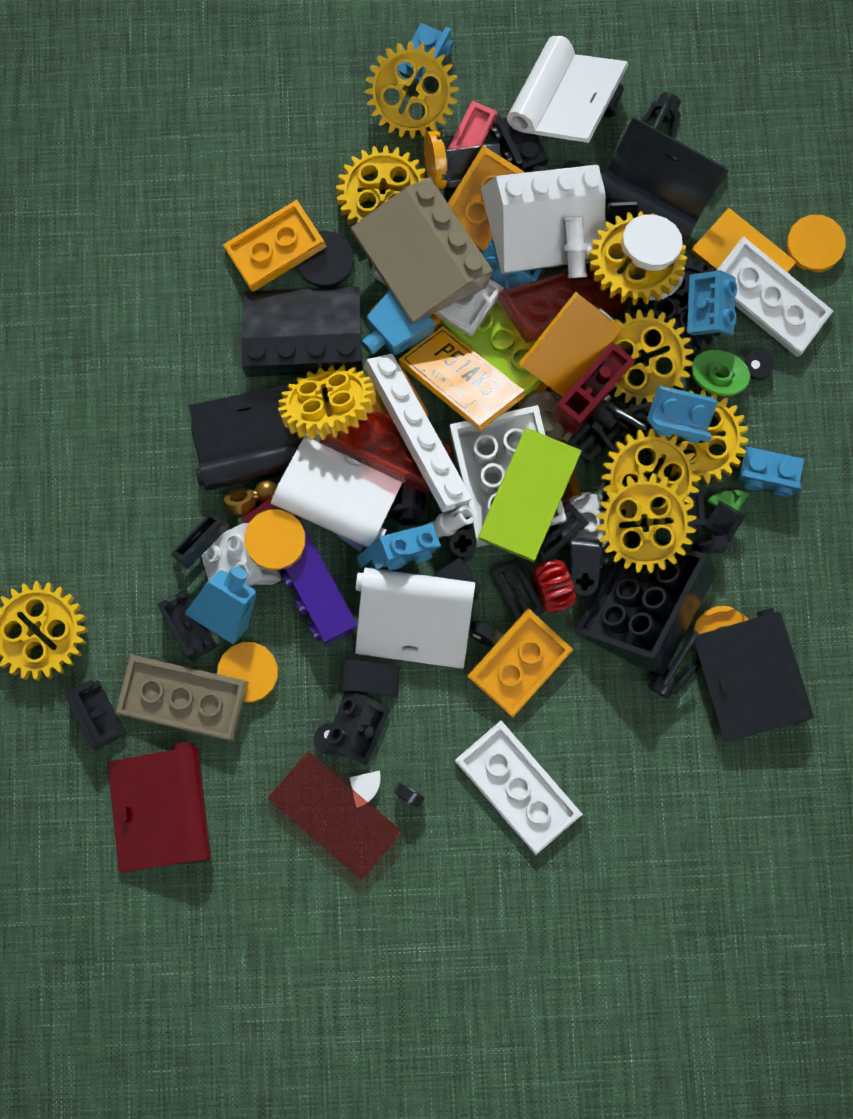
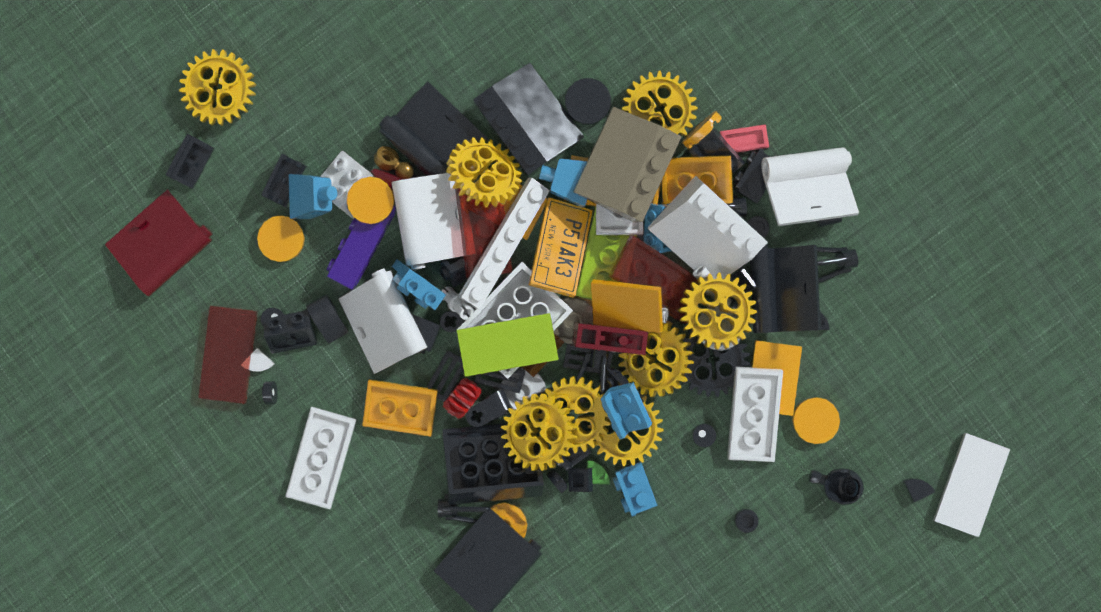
camera: 55 degrees right, 10 degrees up
(182, 697) = (236, 208): dark tan tile -> none
(200, 540) = (344, 150): black tile -> none
(274, 245) = (573, 62): light orange tile -> none
(389, 77) = (743, 102): yellow gear -> none
(431, 38) = (778, 70): dark azure bracket -> none
(483, 633) = (403, 372): black tile -> none
(575, 247) = (698, 265): white pin -> none
(652, 242) = (730, 315): white tile -> none
(711, 303) = (719, 380): dark azure bracket -> none
(720, 372) = (687, 414): bright green dish -> none

